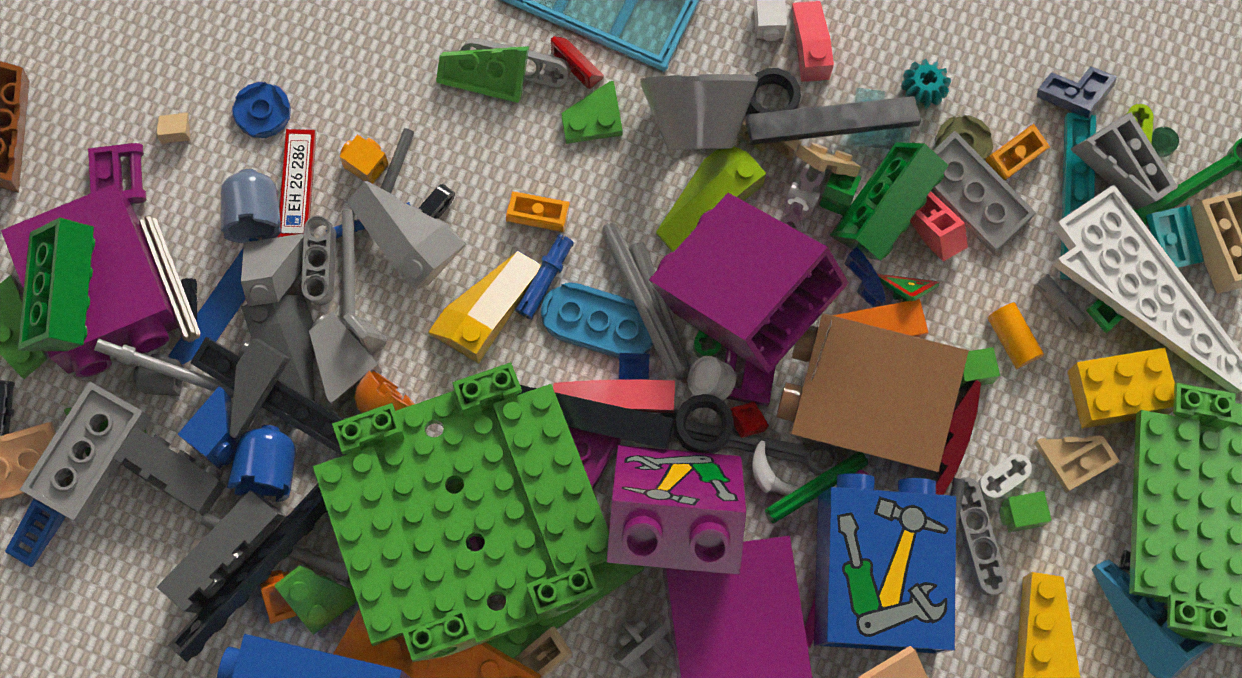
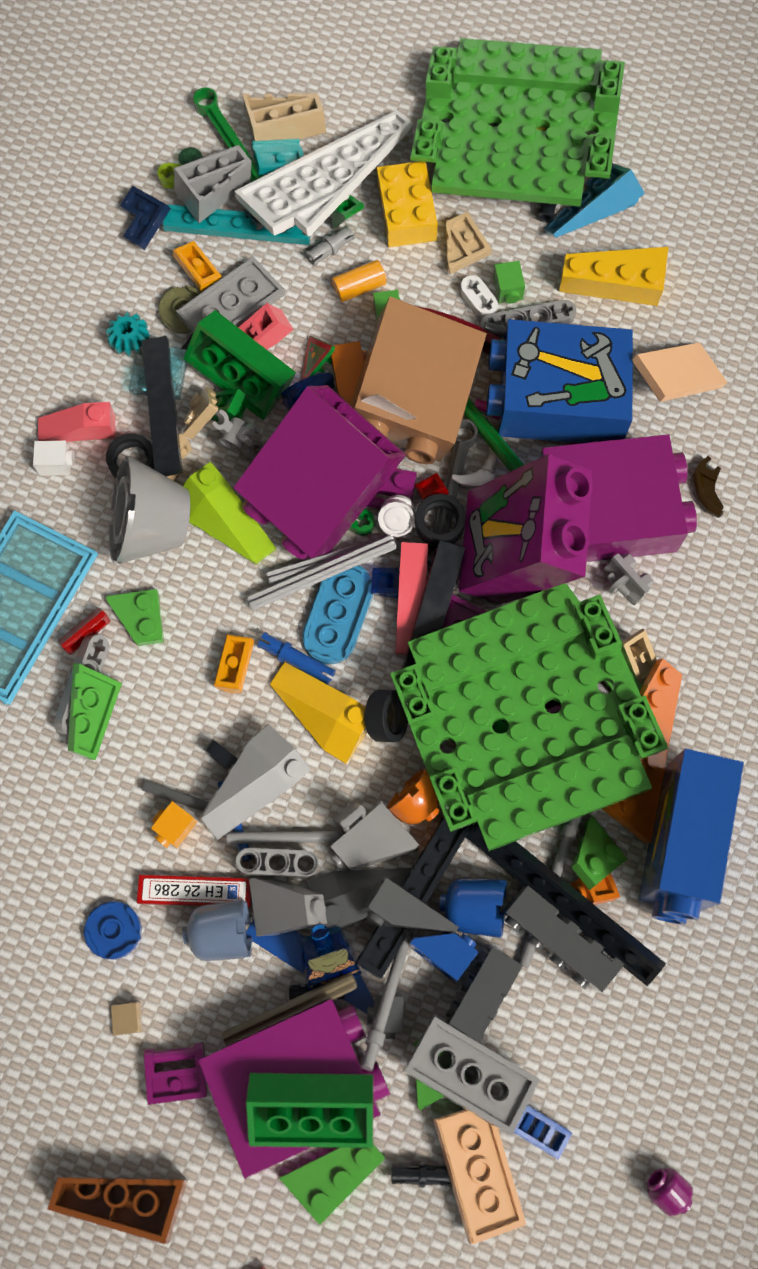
camera: 85 degrees left, 0 degrees up
(218, 311) = (326, 956): none -> clear blue torso
(470, 351) = (385, 716): none -> black tyre

